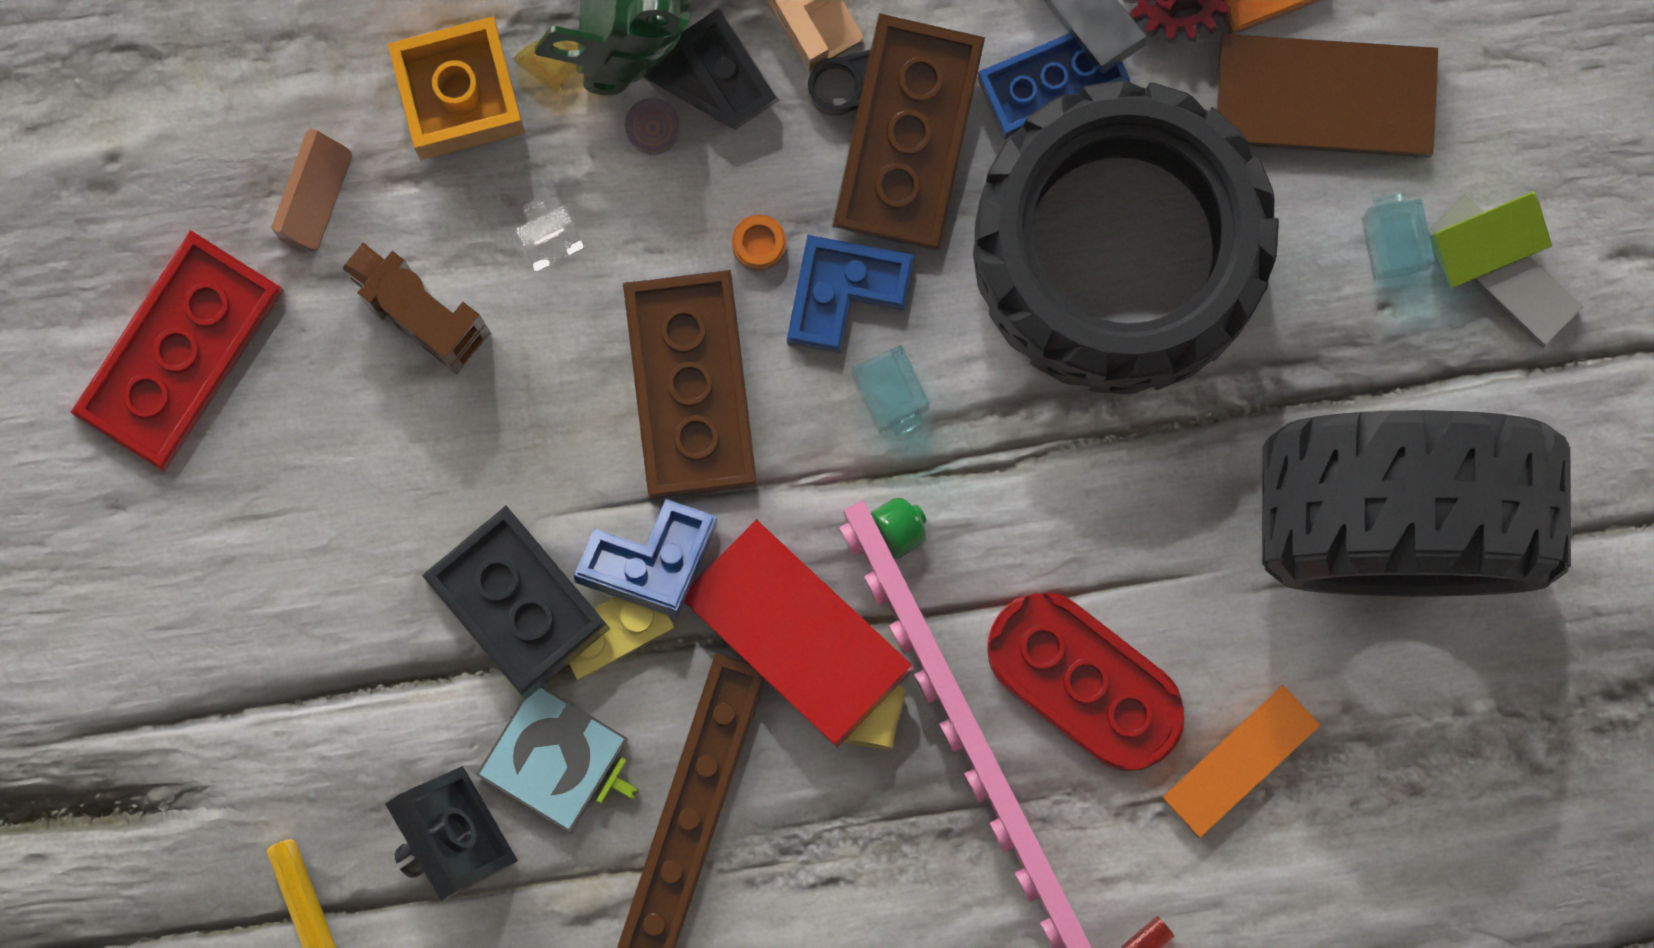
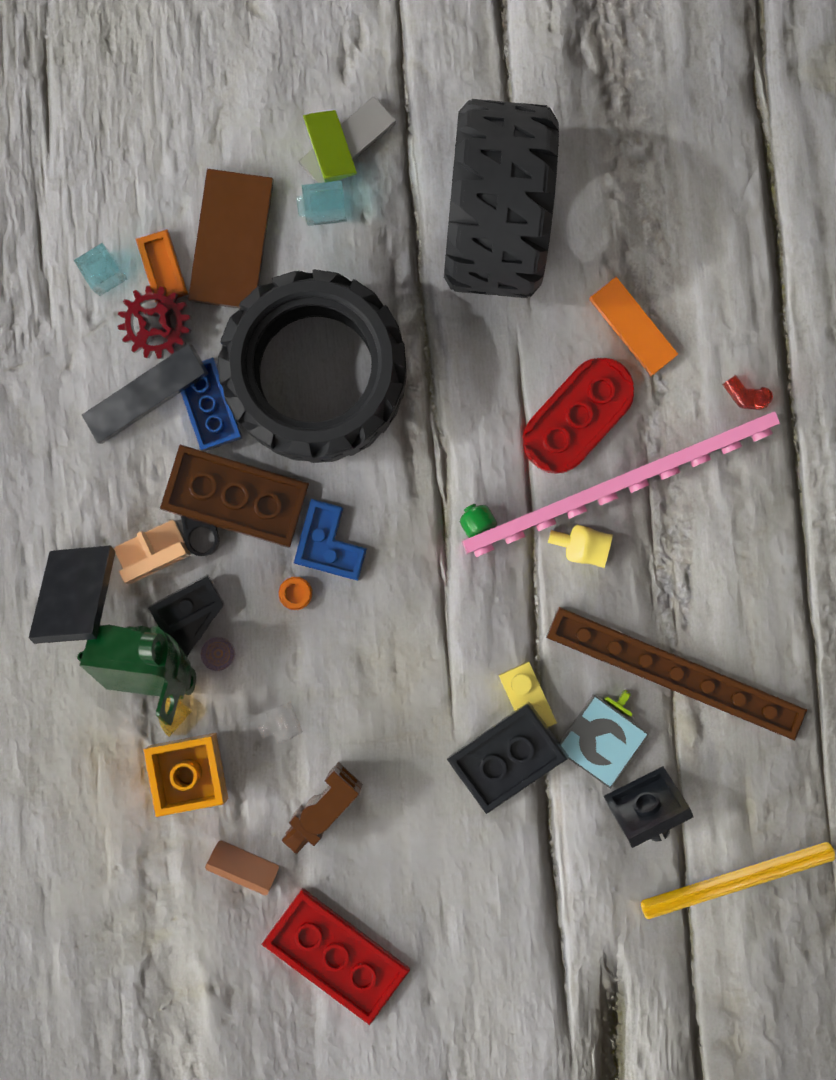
camera: 90 degrees left, 5 degrees up
(652, 574) = (496, 672): tile -> none
(689, 384) = (380, 641): reddish brown tile -> none
(797, 633) = (539, 587): red tile -> none
(891, 391) = (395, 518): clear light blue brick -> none

